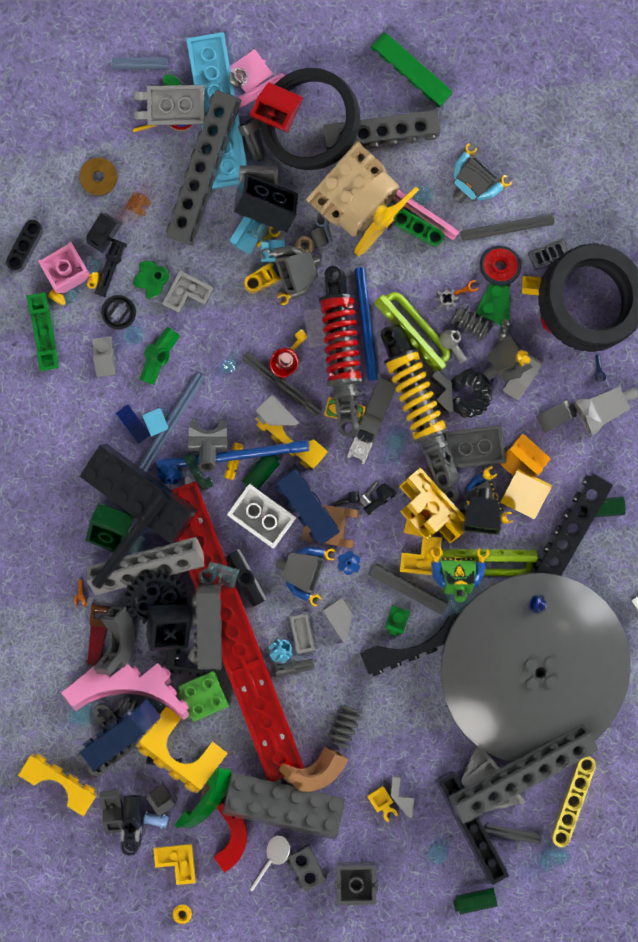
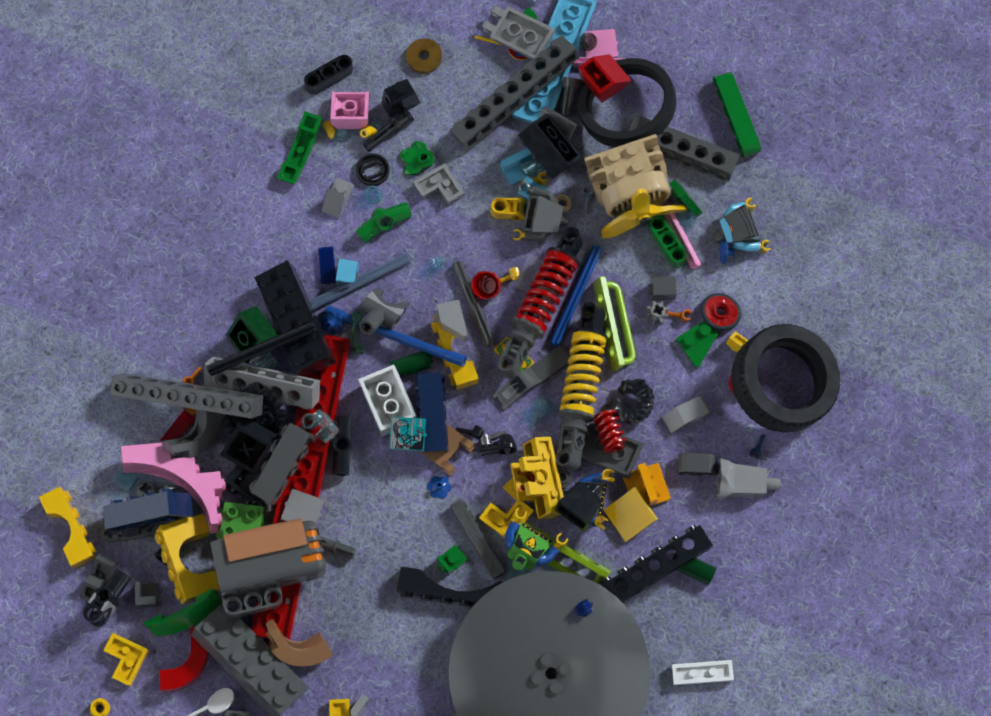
camera: 30 degrees right, 15 degrees down
(89, 617) = (187, 395): none -> dark grey brick
(136, 202) = (441, 92): clear orange tile -> none
(154, 819) = (131, 609): light blue pin -> none
(233, 465) = (390, 346): yellow axle -> none
(246, 721) = (264, 560): none -> dark grey piece
(248, 653) = (302, 506): none -> light grey piece
(280, 651) = (332, 525): medium azure gear -> none
(298, 538) = (407, 433): none -> piece
(302, 633) = (361, 523): light grey tile -> none
(303, 571) = (395, 468): dark grey torso -> none
(318, 237) = (577, 203): dark grey hinge -> none
(340, 617) = (402, 527): light grey slope -> none
(345, 726) = (348, 624): dark grey piece -> none
(406, 177) = (681, 194): none -> green wing
(438, 274) = (662, 288): none -> dark grey brick
(444, 399) = (606, 393): dark grey slope -> none
(449, 342) = (640, 348): light grey bar -> none
(468, 432) = (608, 431): none -> red piece
(471, 323) = (666, 344): dark grey piece -> none
(474, 208) = (725, 251): none -> blue plant
(507, 227) = (745, 284): dark grey axle -> none
(507, 357) = (681, 389): dark grey torso -> none
(534, 260) = (763, 318): black slope -> none

